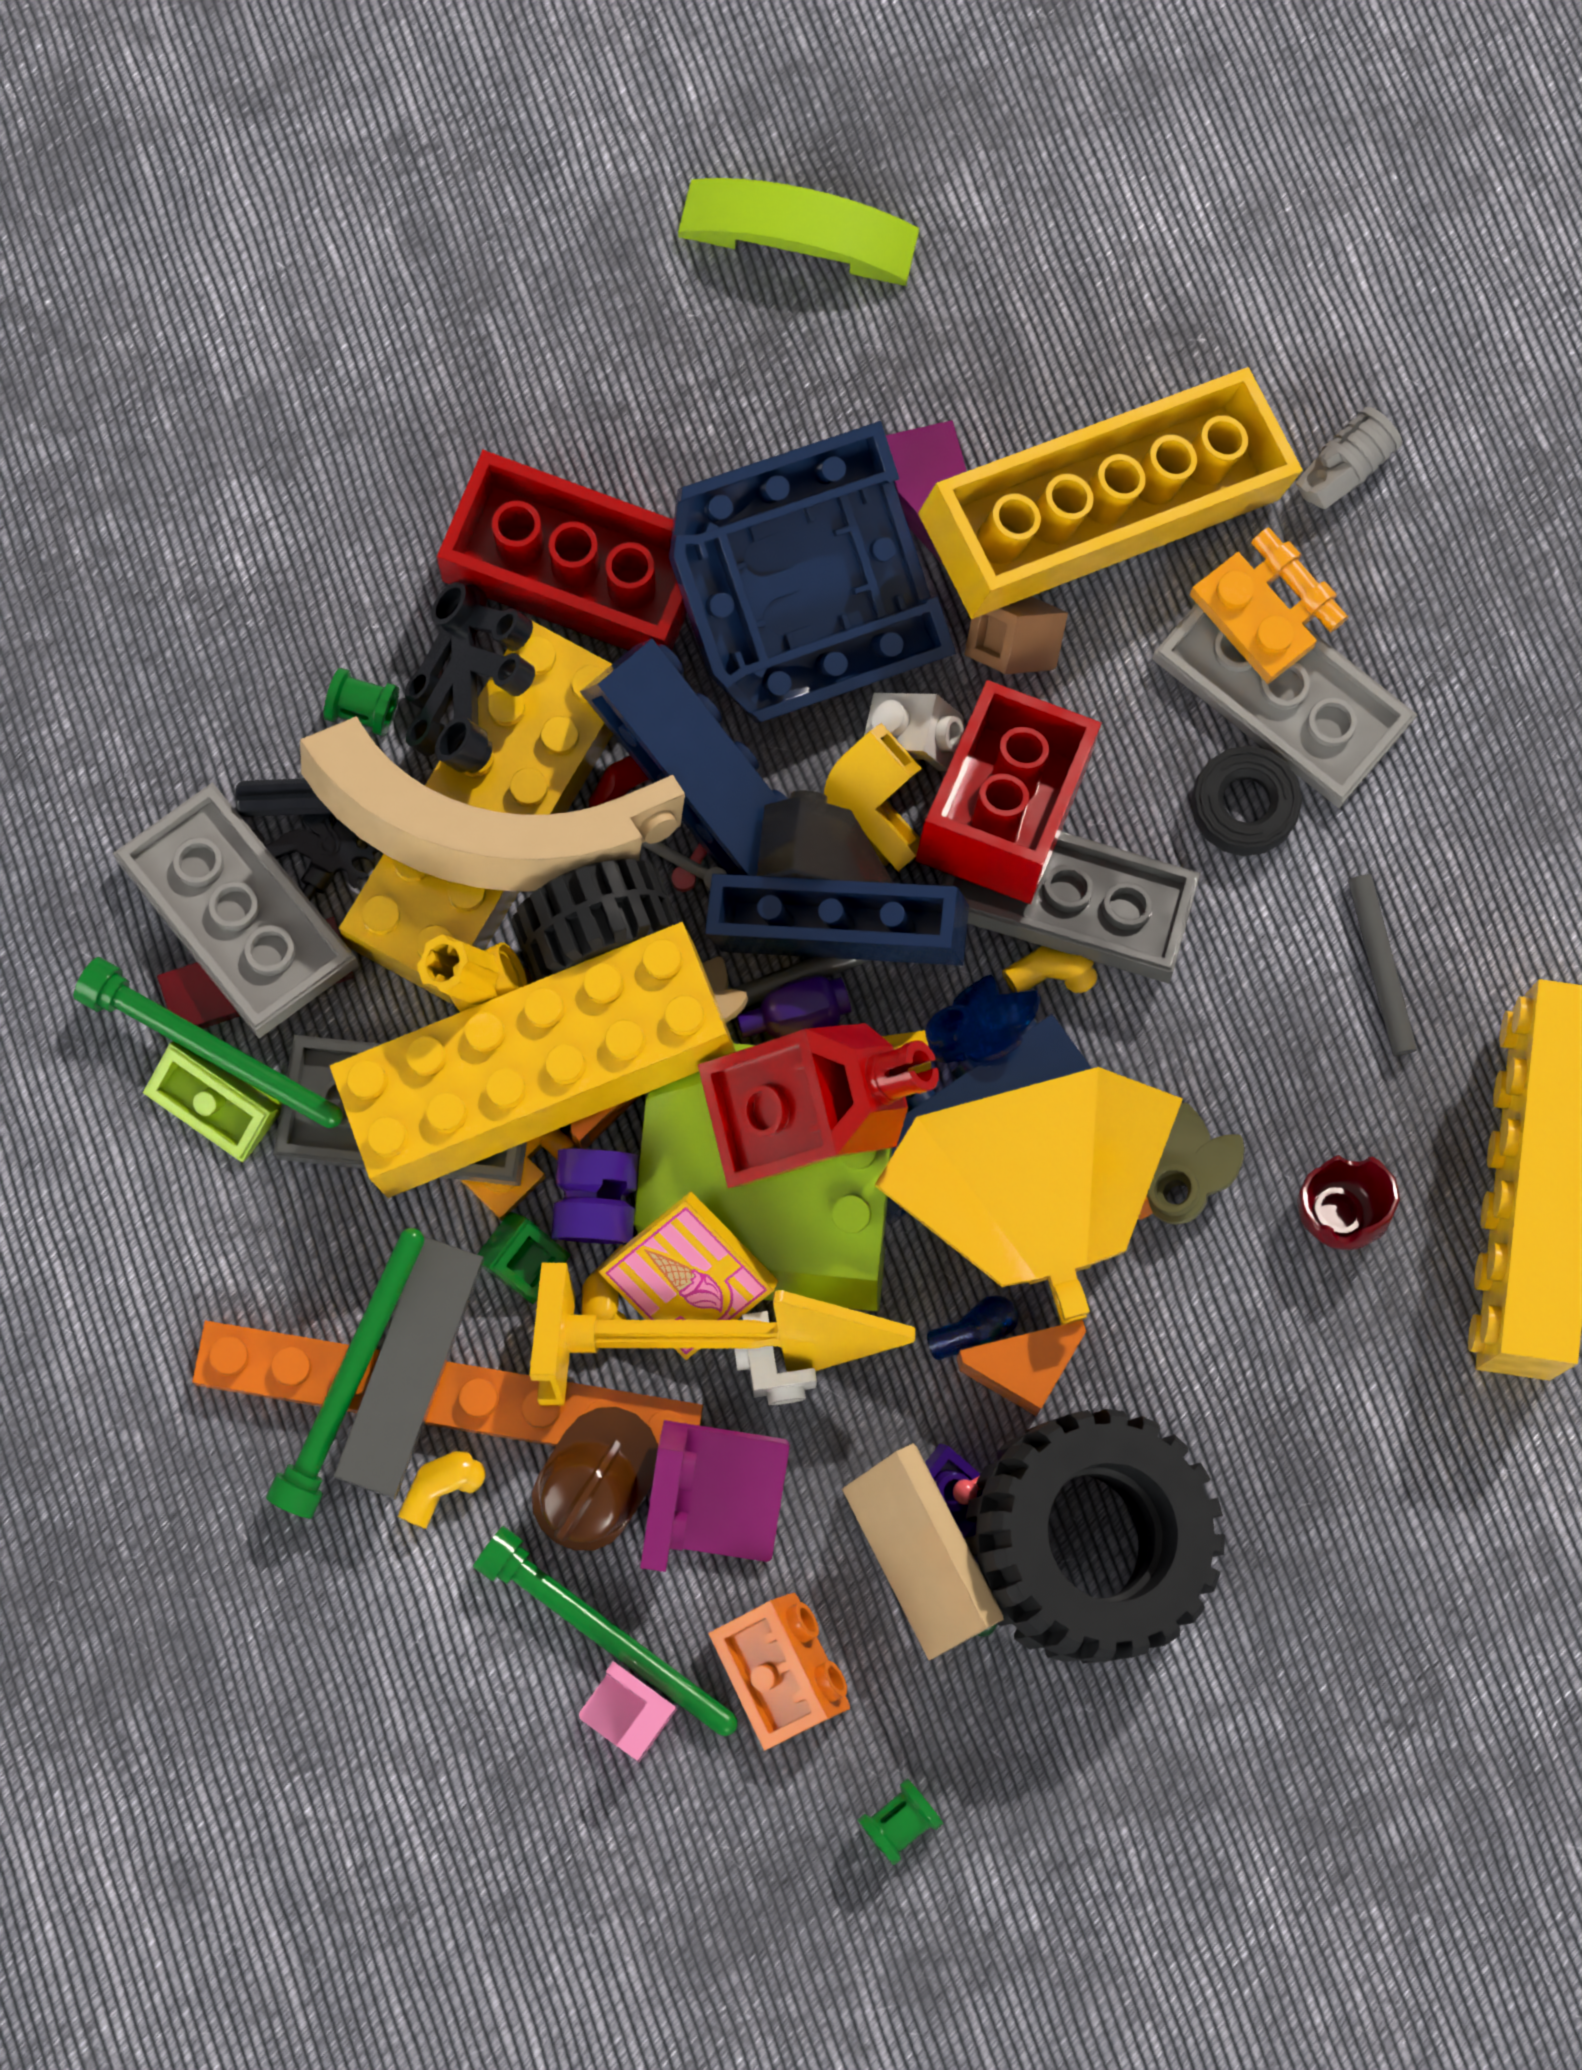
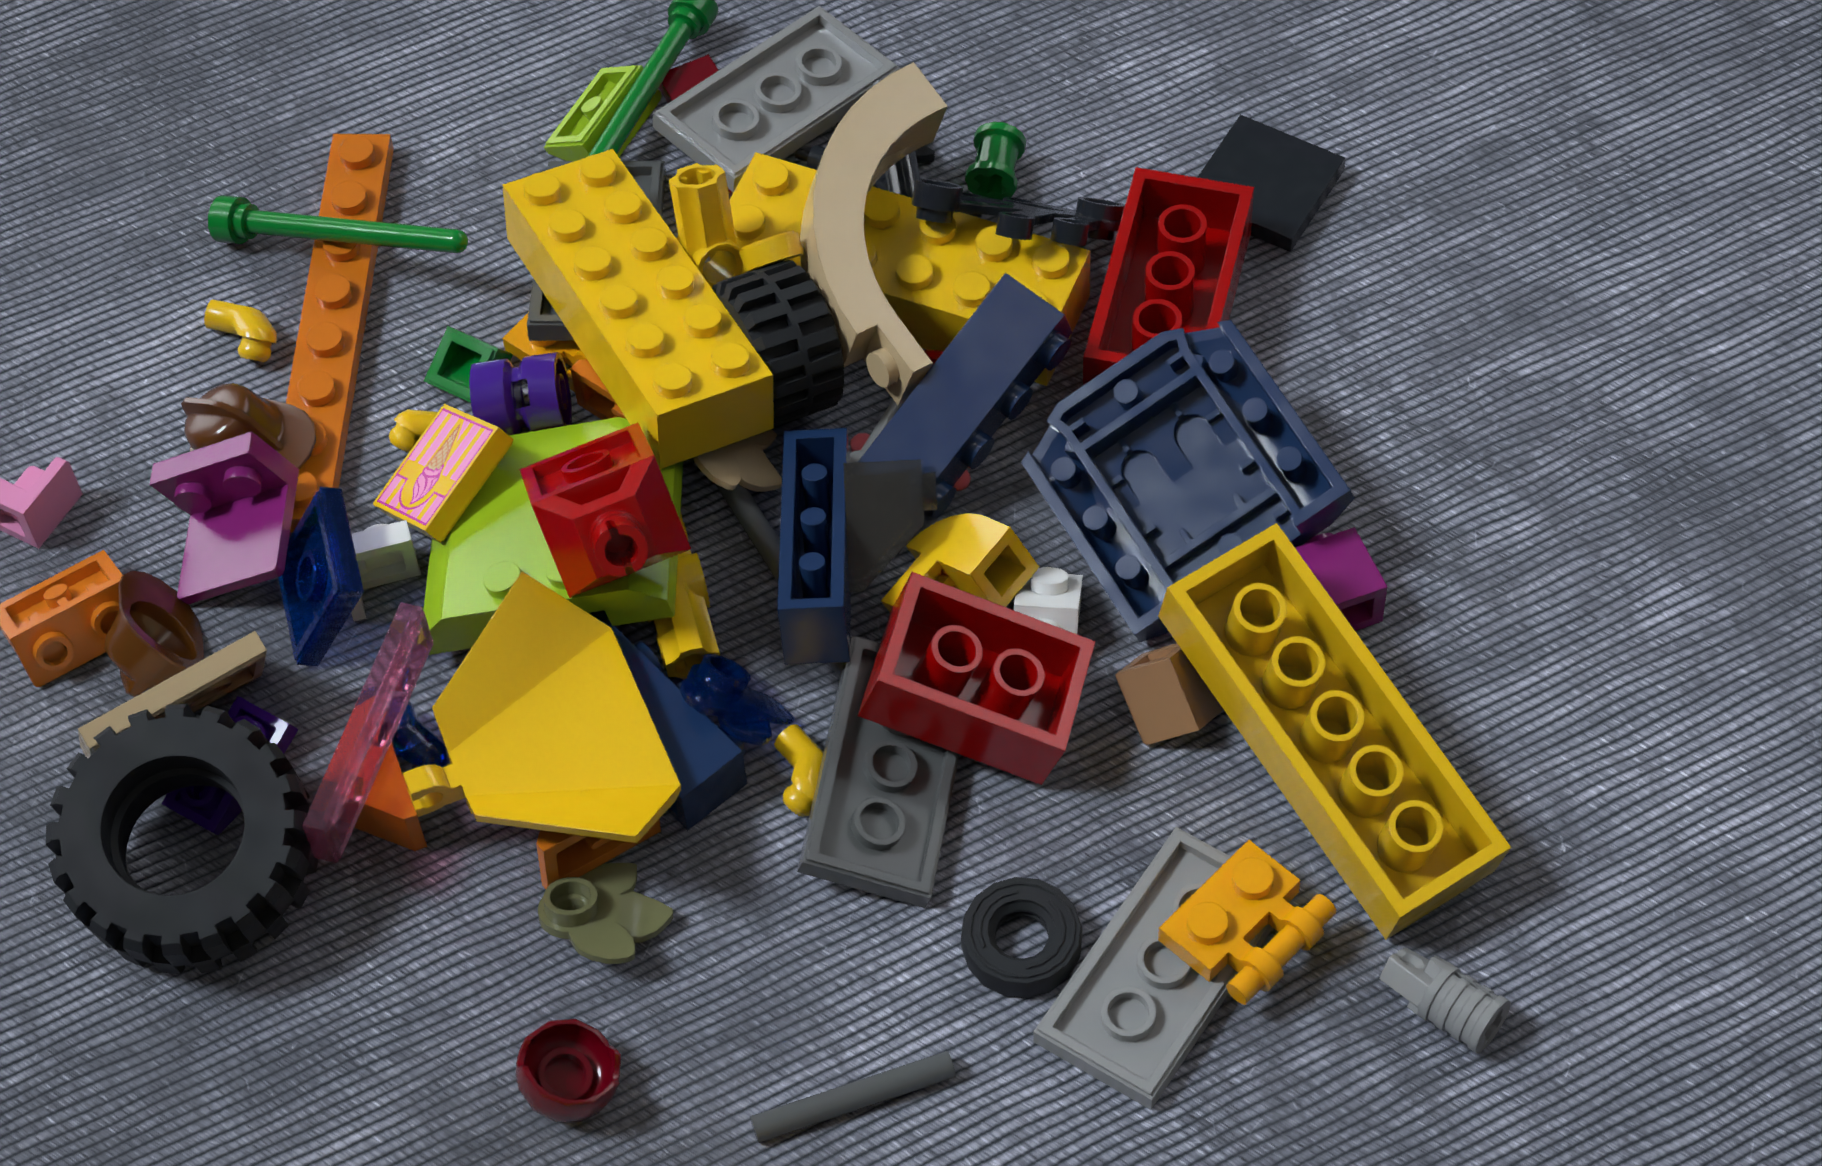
camera: 90 degrees right, 20 degrees down
(409, 1368) = (346, 274): dark grey tile -> none
(424, 450) = (1286, 173): none -> black tile
(508, 1561) = (173, 382): green piece -> none
(511, 913) = (771, 250): none -> yellow tile
(797, 1006) = (732, 547): dark purple plant -> none
(800, 1398) = (320, 577): none -> clear blue tile
(801, 222) = (1586, 458): lime slope -> none
(806, 1330) = (385, 384): yellow piece -> none
(833, 1575) = (152, 633): none -> reddish brown piece
(1006, 1350) = (368, 733): none -> clear pink tile

